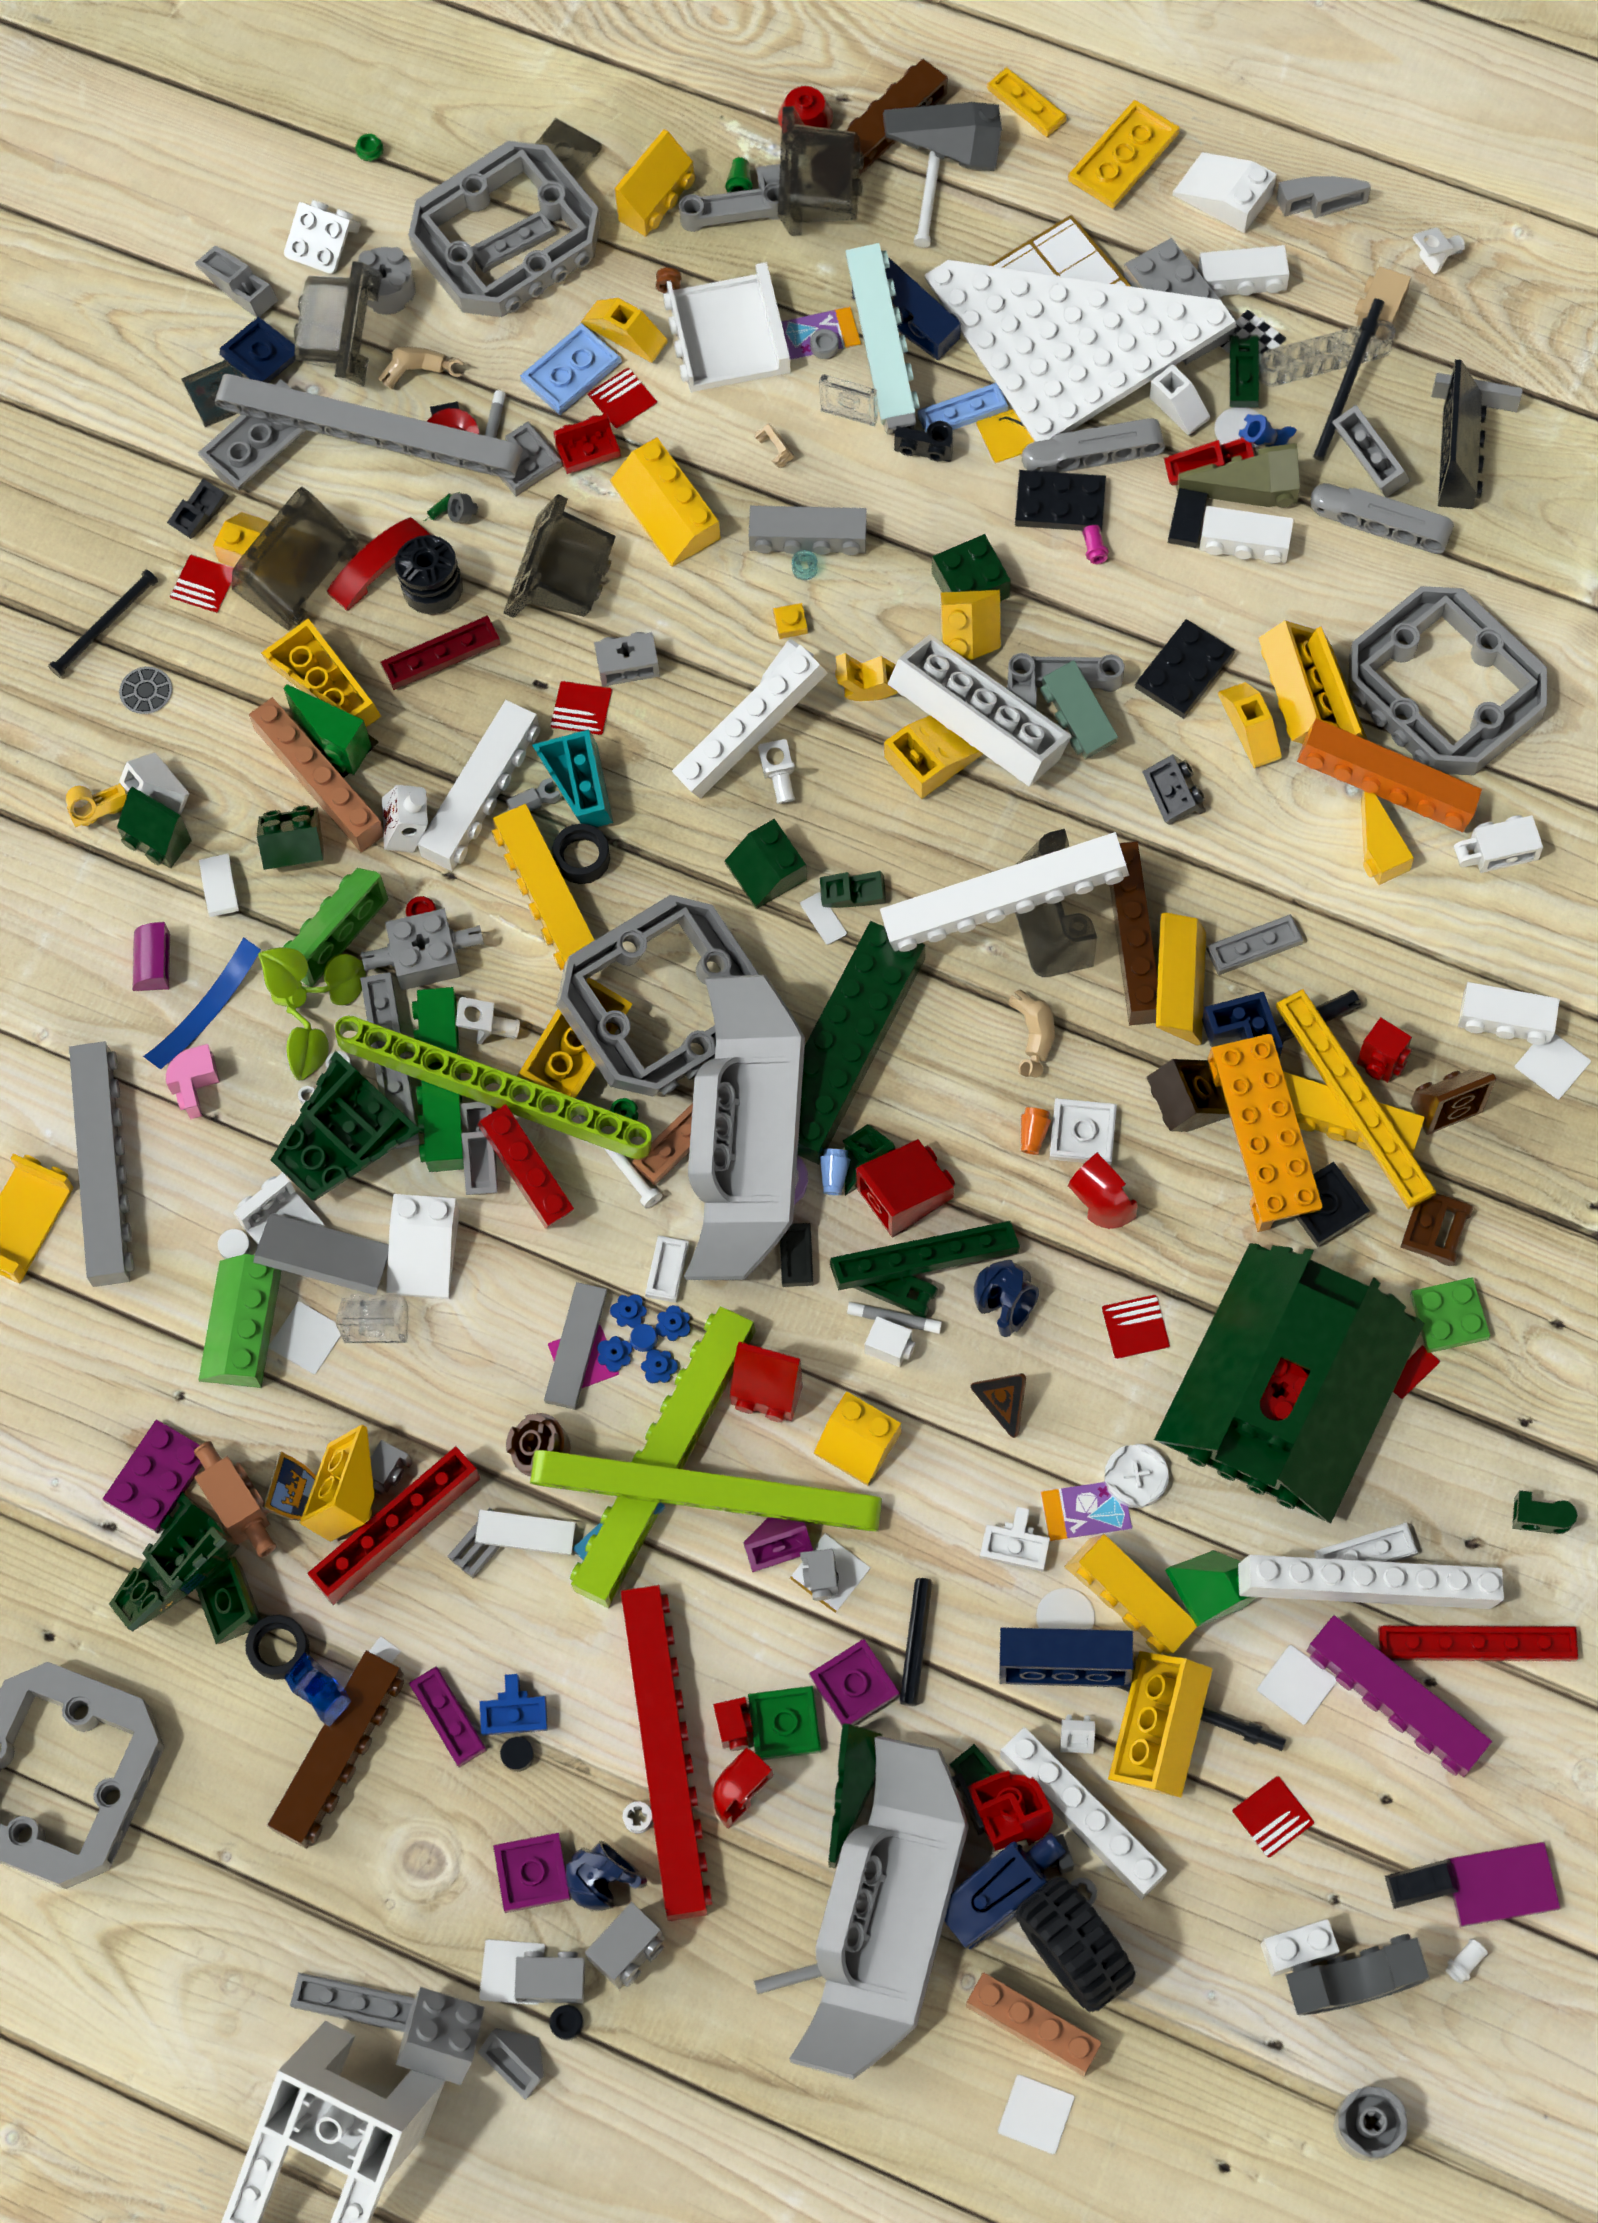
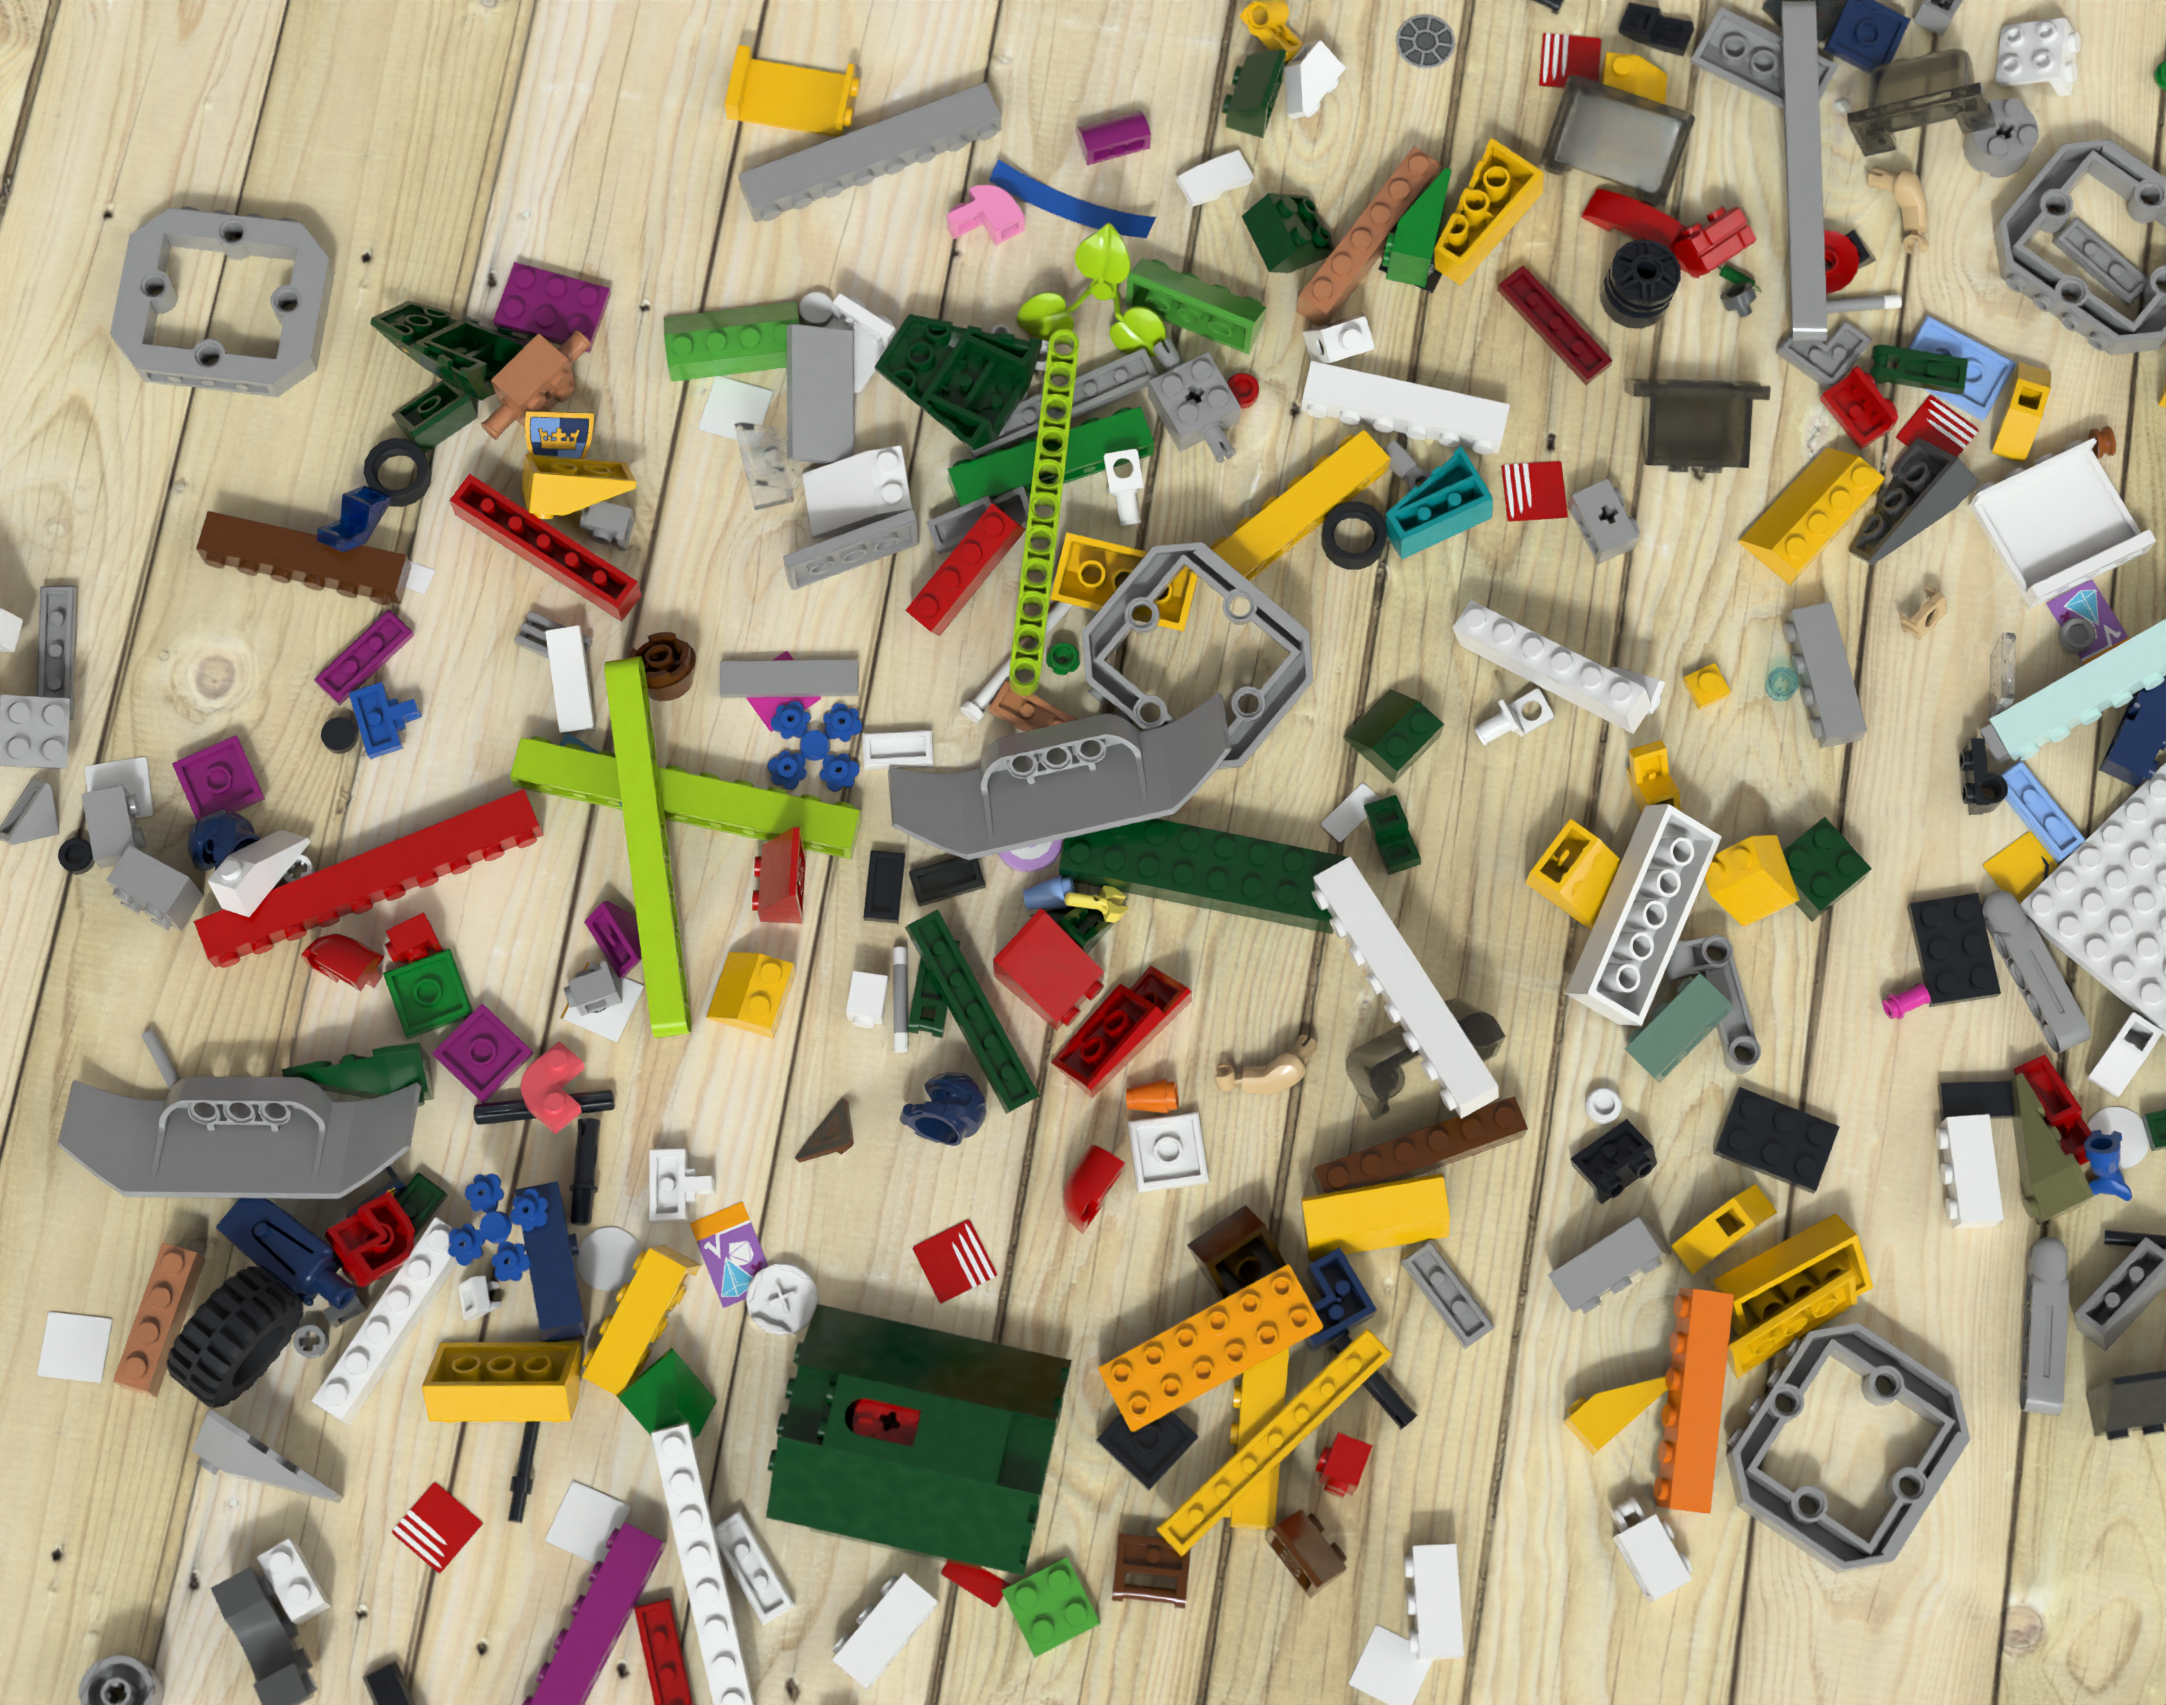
camera: 70 degrees right, 5 degrees up
(407, 509) = (1714, 242): none -> red brick
(477, 1259) = (851, 549): none -> light grey tile
(568, 390) = (1919, 369): none -> dark green plate
(634, 1846) = (254, 870): none -> white slope
(672, 415) = (1922, 491): none -> dark grey wedge
(789, 1308) = (884, 886): none -> black tile
(852, 1129) = (1105, 901): none -> light yellow bar
(905, 1635) = (544, 1083): none -> coral plate
(969, 1140) = (1121, 1029): none -> red slope
(978, 1615) = (584, 1171): none -> black axle
(1029, 1688) = (497, 1227): none -> blue plant
(1125, 788) = (1603, 1105): none -> white tile
(1175, 1969) = (241, 1455): none -> light grey wedge
(1262, 811) = (1610, 1265): none -> light grey wedge
(1444, 1451) = (884, 1630): none -> white brick

